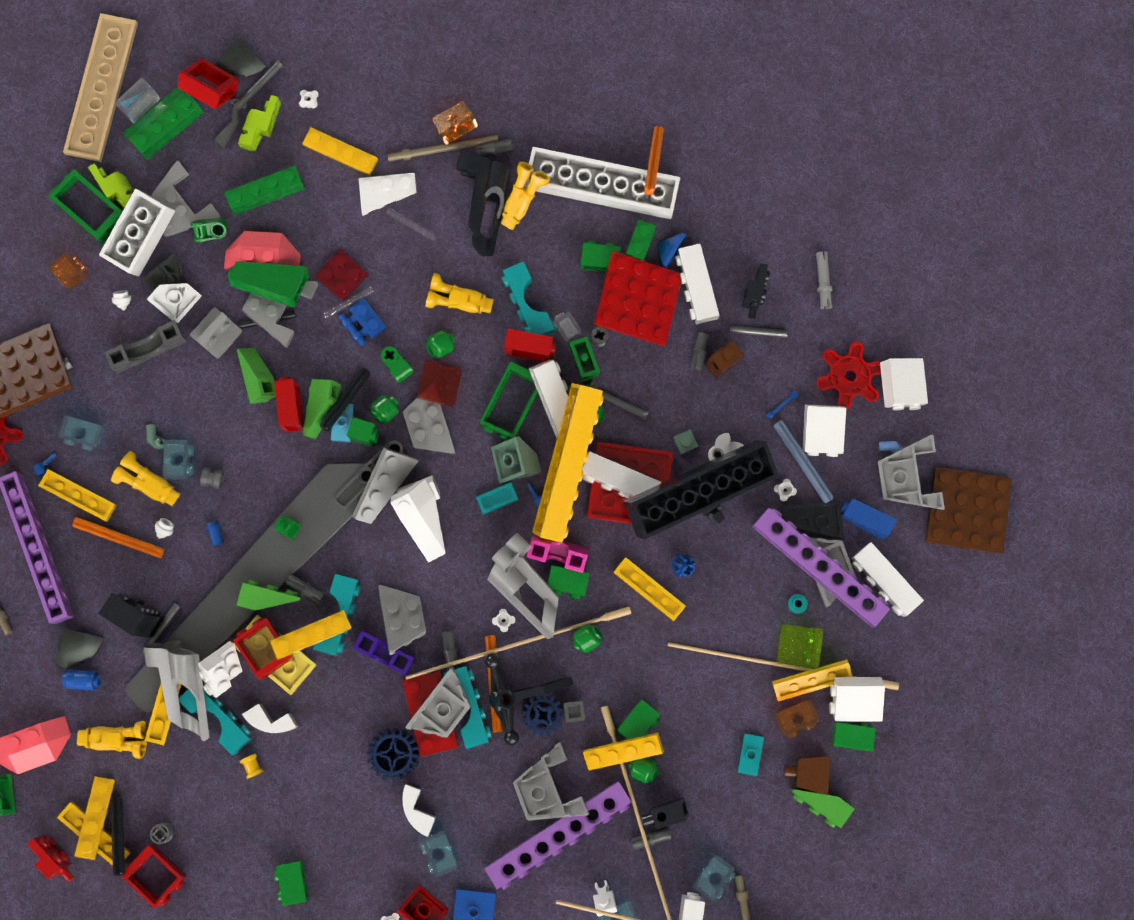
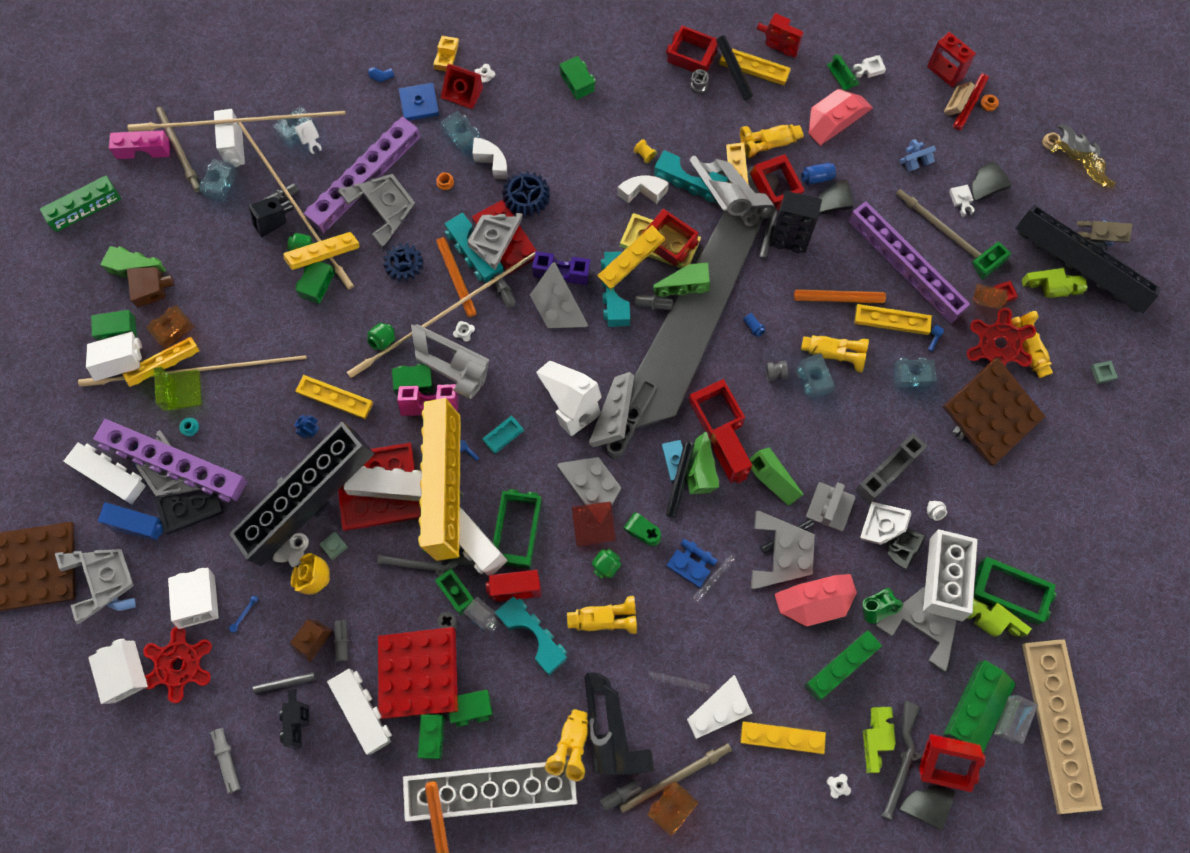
camera: 165 degrees right, 10 degrees down
(69, 271) = (999, 515): clear orange brick -> none
(94, 818) = (759, 75): yellow plate -> none
(146, 693) = (781, 162): none -> red window
(153, 439) = (846, 390): sand green arm -> none
(164, 528) = (802, 315): white plate -> none
(219, 669) = (703, 205): white plate -> none
(270, 281) = (797, 568): green slope -> none
(282, 477) = (709, 392): none -> red window
(287, 527) = (689, 345): green piece -> none
(341, 275) = (731, 604): dark red plate -> none
(363, 432) = (649, 451): green brick -> none
(384, 409) = (638, 483): green head -> none
(471, 806) = (445, 177): none -> orange plate
(500, 688) = (440, 263): black piece -> none
(515, 460) = (495, 472): sand green slope -> none
(574, 711) = (375, 272): dark grey tile -> none
(668, 249) = (400, 741): blue slope -> none
(713, 416) = (310, 575): none -> yellow cylinder
(750, 754) = (207, 287): teal plate -> none
(780, 490) = (217, 529): white plate -> none
(803, 461) = (209, 561): sand blue axle -> none
(865, 894) = (80, 203): none -> green brick

